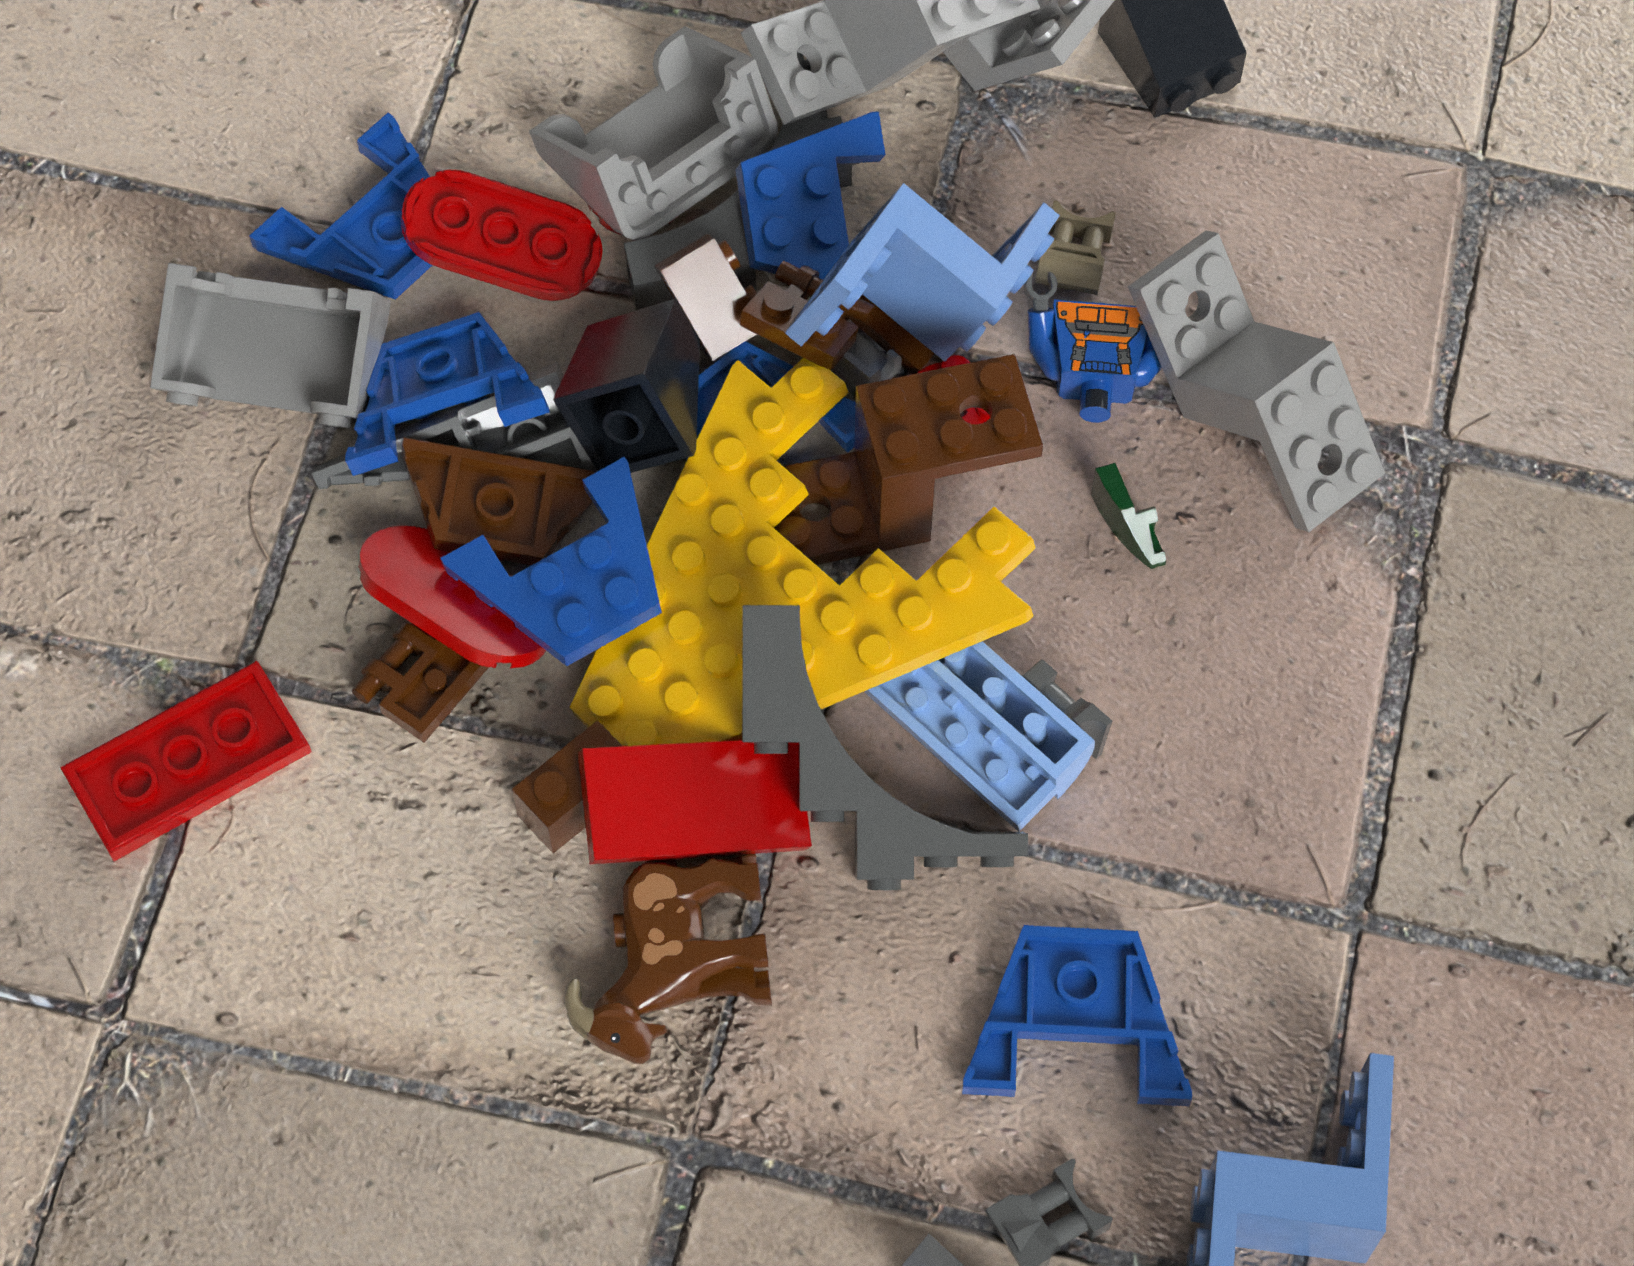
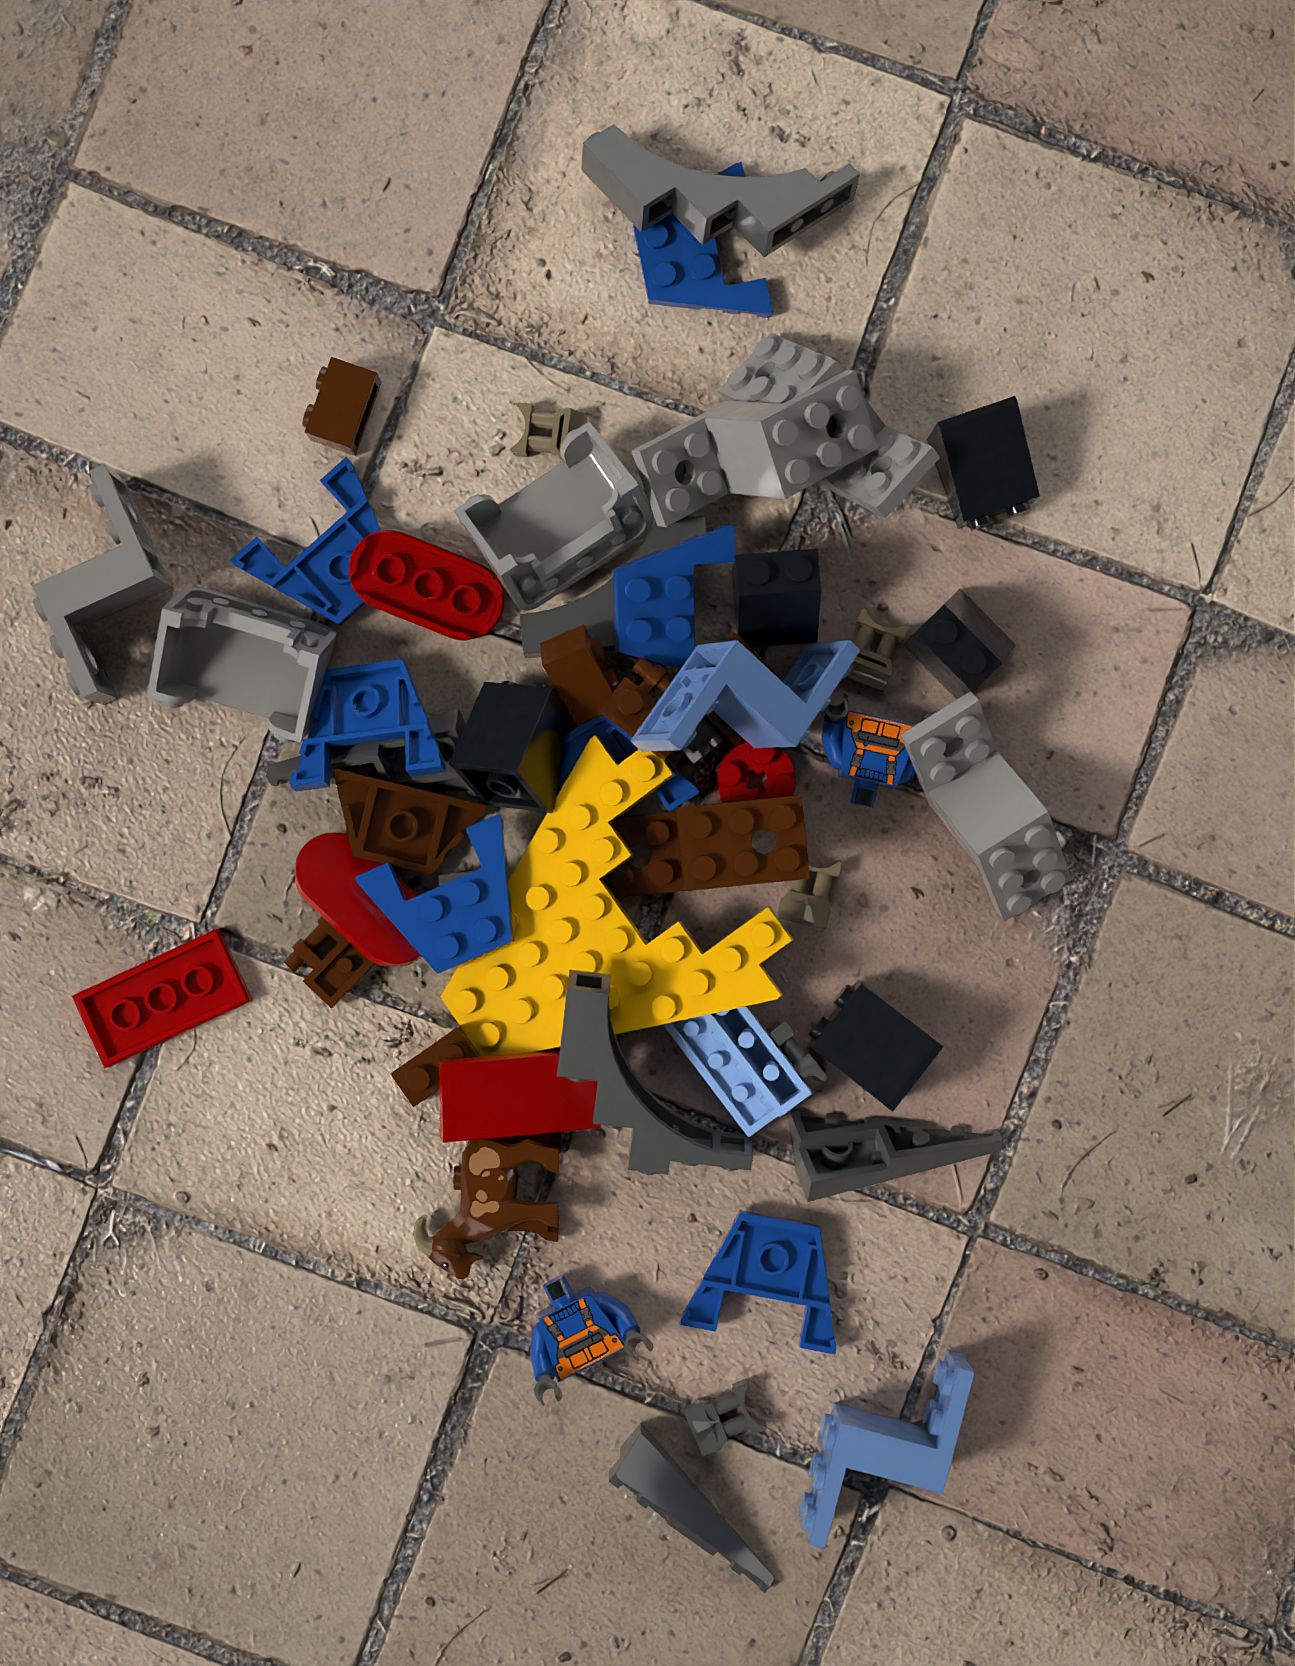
camera: 10 degrees right, 25 degrees up
(85, 273) = (100, 587): none -> light grey bracket
(377, 63) = (341, 405): none -> reddish brown piece
(613, 80) = (561, 422): none -> dark tan piece
(821, 1115) = (579, 1333): none -> torso
(950, 164) = (777, 597): none -> black slope
(1054, 543) = (806, 908): none -> dark tan piece
(1132, 528) = (877, 908): dark green slope -> none
(1169, 685) = (874, 1044): none -> black slope
(1170, 204) = (960, 645): none -> black slope
(1170, 837) = (850, 1155): none -> dark grey wedge

